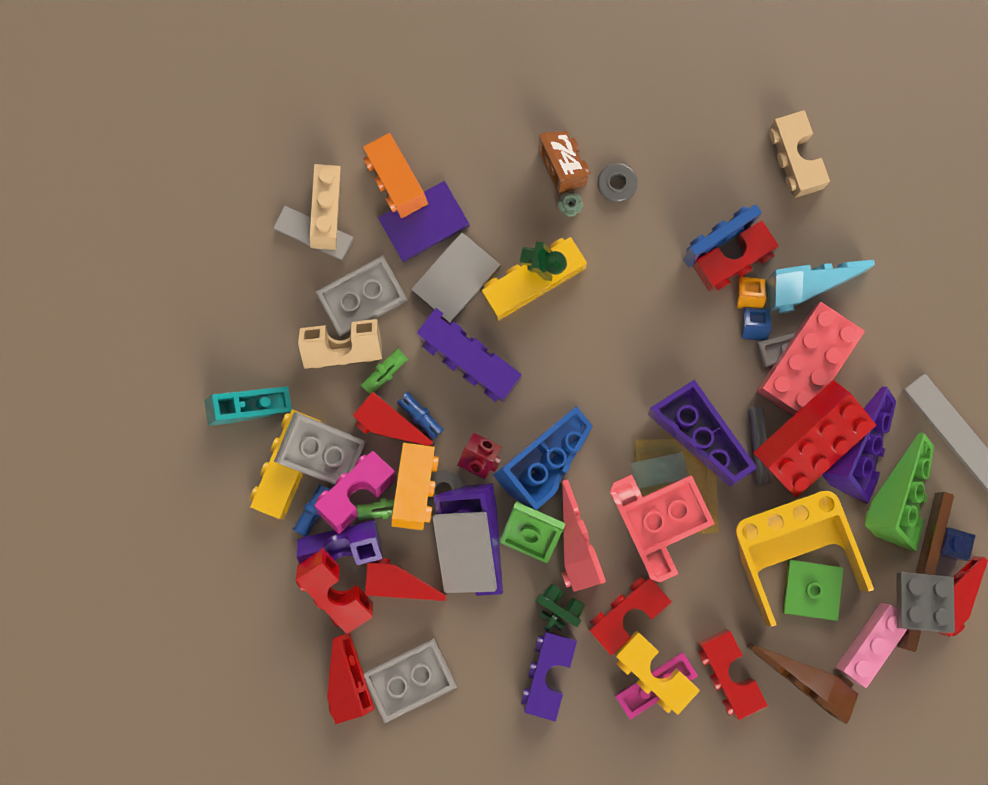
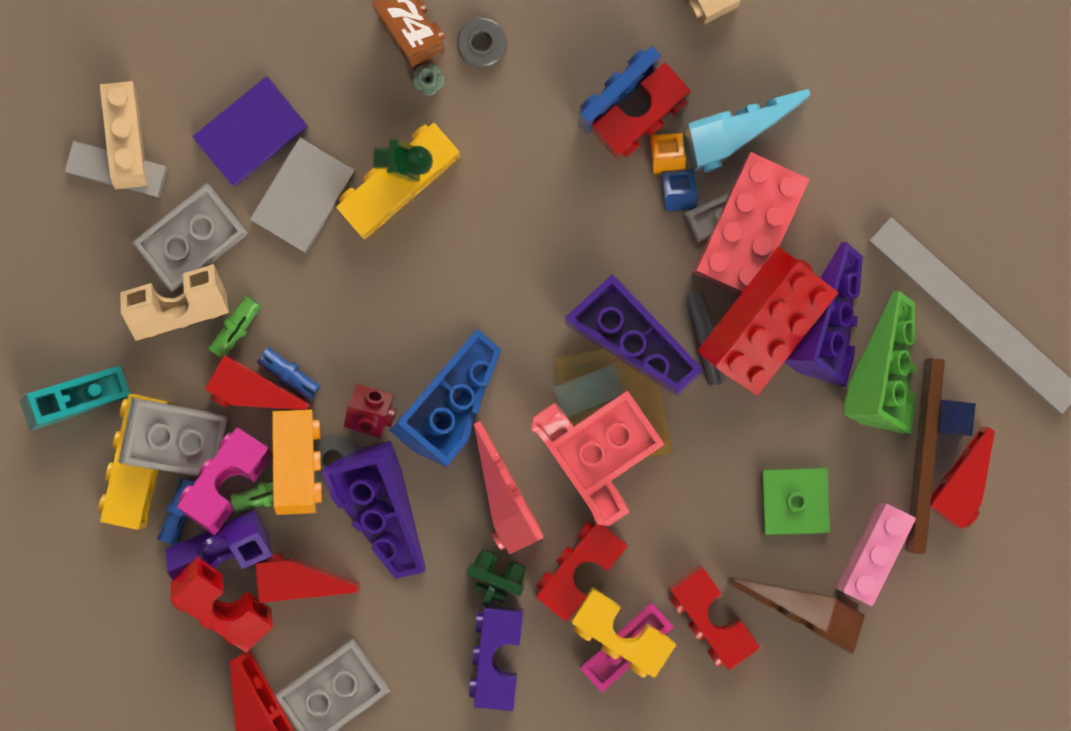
camera: 20 degrees left, 5 degrees up
(394, 176) = (202, 81): orange brick -> none
(465, 552) = (371, 530): light grey tile -> none
(468, 356) = (333, 290): dark purple wedge -> none
(532, 532) = (447, 492): bright green plate -> none
(792, 532) = (758, 438): yellow windscreen -> none
(925, 602) = (926, 494): dark grey plate -> none

